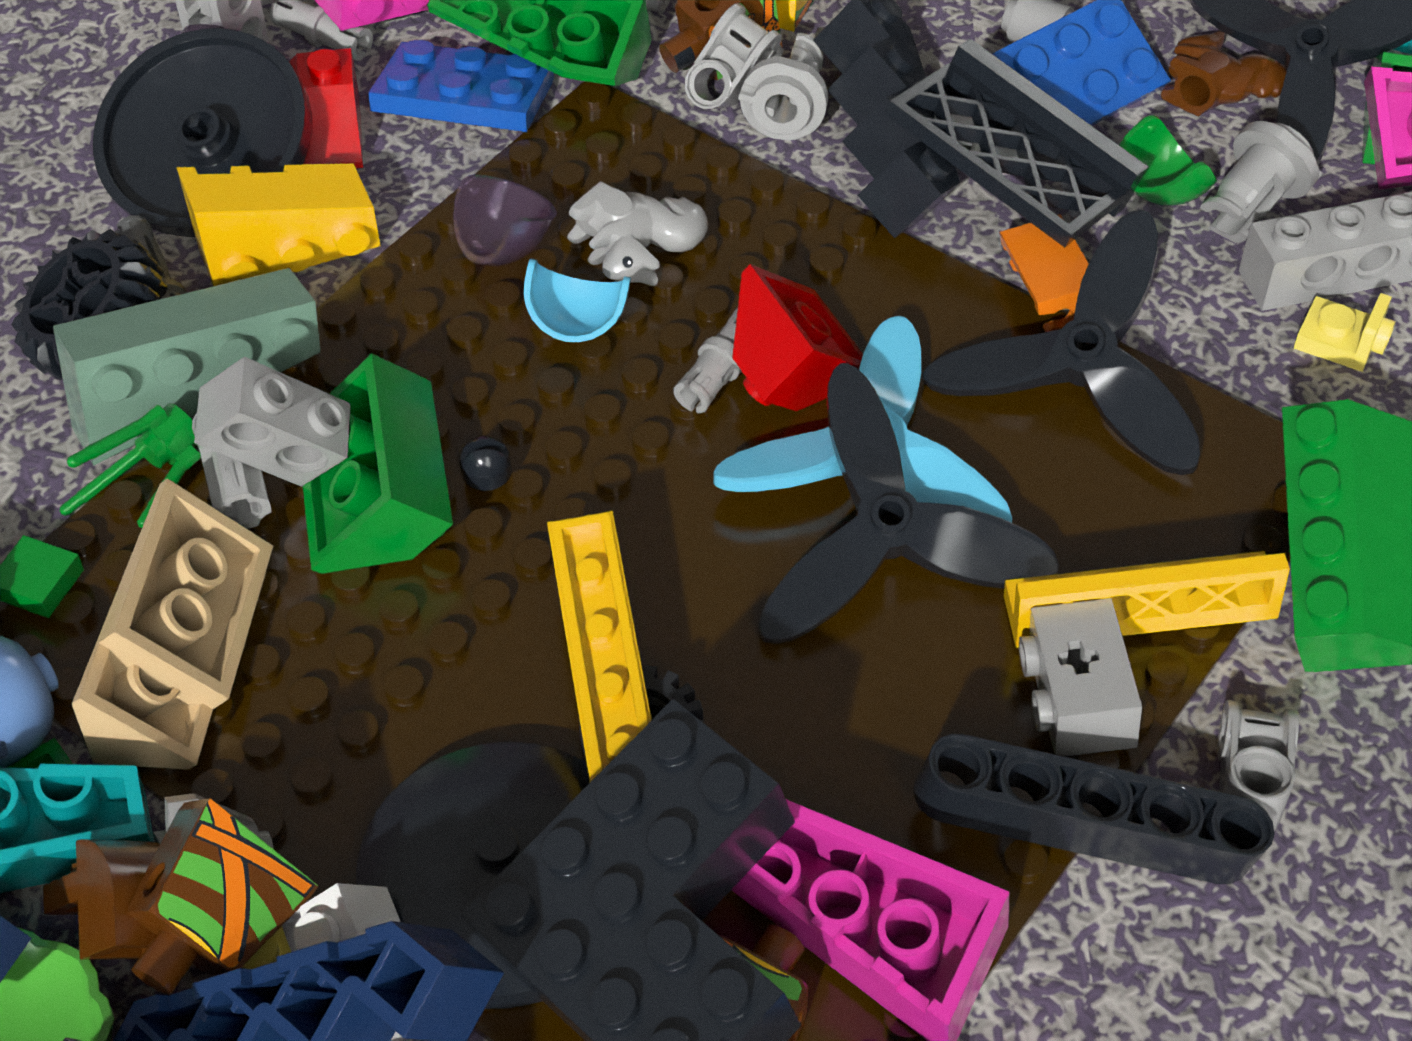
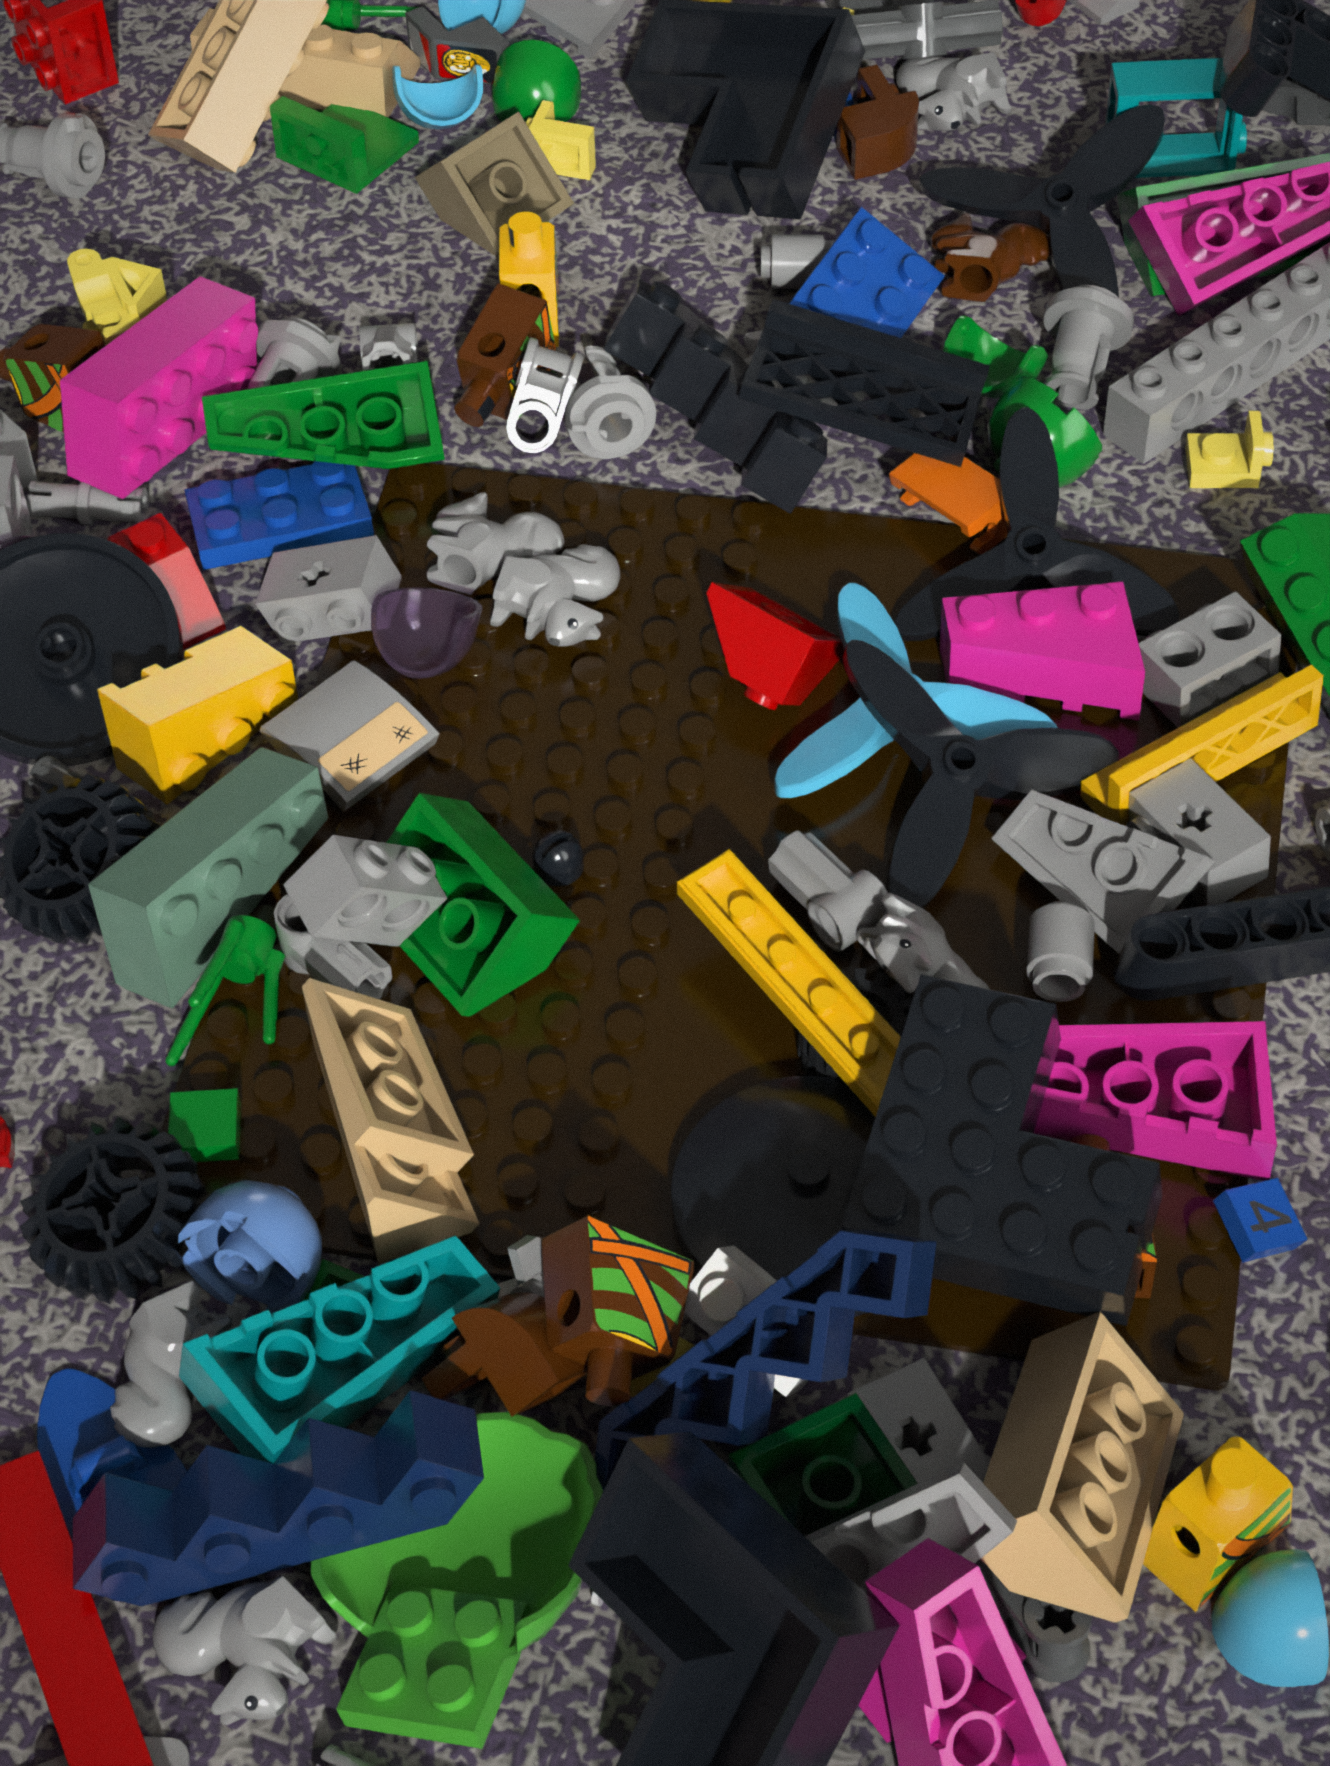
camera: 25 degrees left, 0 degrees up
(384, 289) = (351, 731): none -> light grey slope
(440, 151) = (325, 588): none -> light grey brick
(571, 306) = (554, 683): medium azure helmet -> none
(599, 157) = (477, 546): none -> light grey animal
(704, 599) = (831, 893): none -> light grey piece
(710, 370) = (710, 688): light grey pin -> none
(740, 678) = (913, 944): none -> light grey animal
(879, 735) = (1060, 951): none -> light grey brick
(965, 667) = (1099, 863): none -> light grey wing
(1046, 438) = (1047, 645): none -> dark pink wedge
(1182, 261) = (1072, 436): none -> green cylinder
(1198, 510) = (1208, 658): none -> light grey brick

